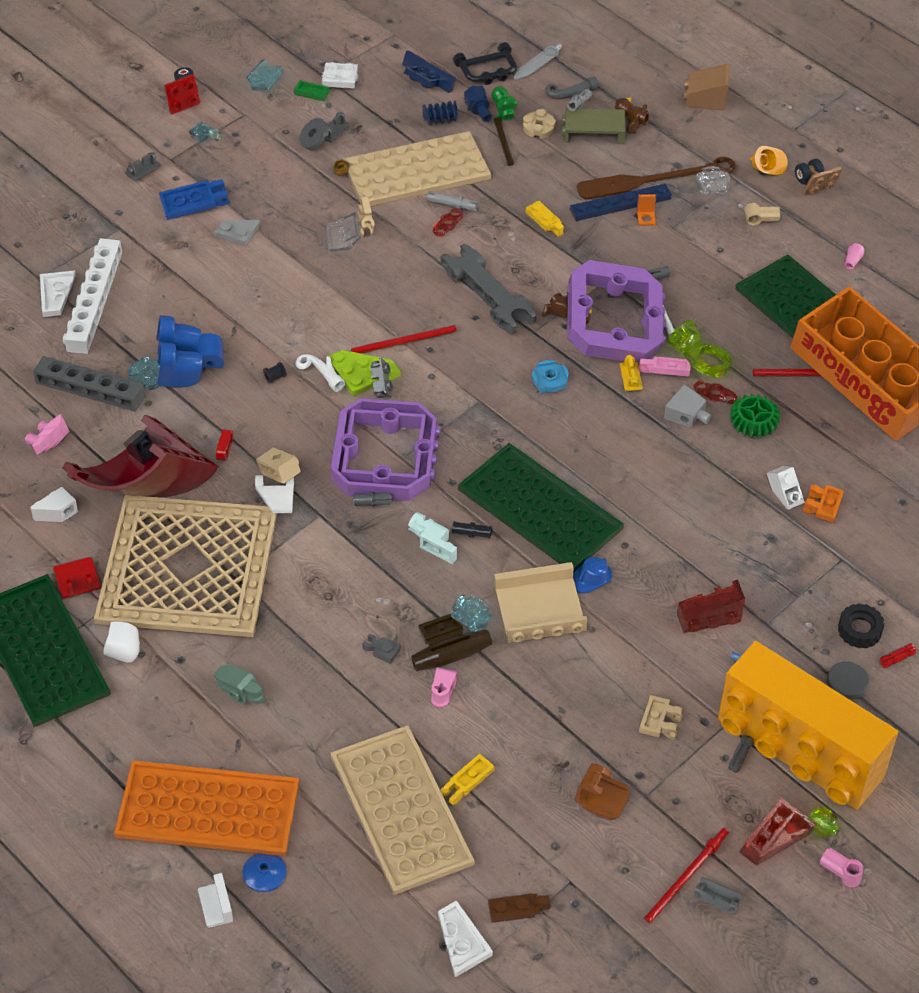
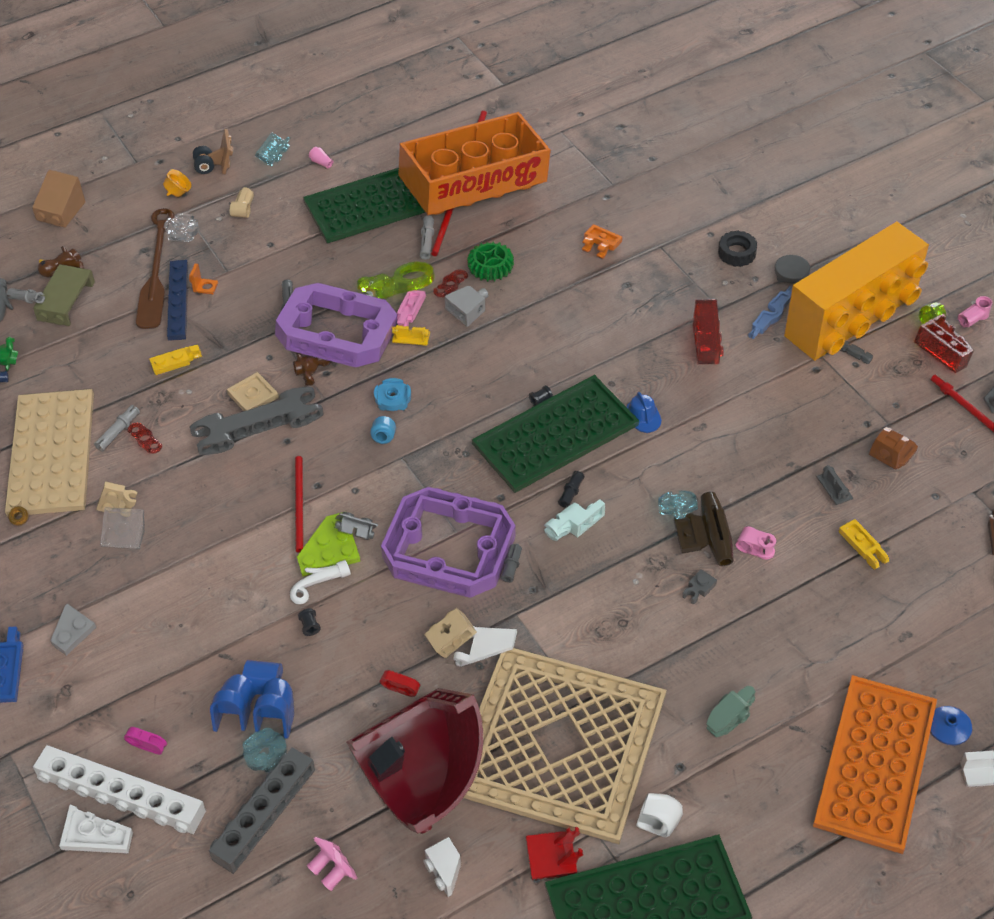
camera: 75 degrees left, 0 degrees up
(140, 299) = (145, 740): none -> dark pink piece
(401, 810) = (891, 600): tan plate -> none
(501, 376) = (383, 430): none -> dark azure head
(503, 140) = (44, 372): dark brown bar -> none
(519, 278) = (252, 392): none -> tan plate
(532, 123) = (27, 334): tan plate -> none
(538, 748) = (834, 486): none -> dark grey hinge
(539, 602) = (673, 456): tan panel -> none
(582, 486) = (540, 396): none -> black bush
(655, 715) = (813, 398): tan plate -> none
(773, 360) = (427, 232): none -> light grey pin
(786, 486) = (577, 259): white slope -> none
(849, 217) = (272, 148): none -> clear light blue bracket
(898, 655) = (770, 235): red axle -> none

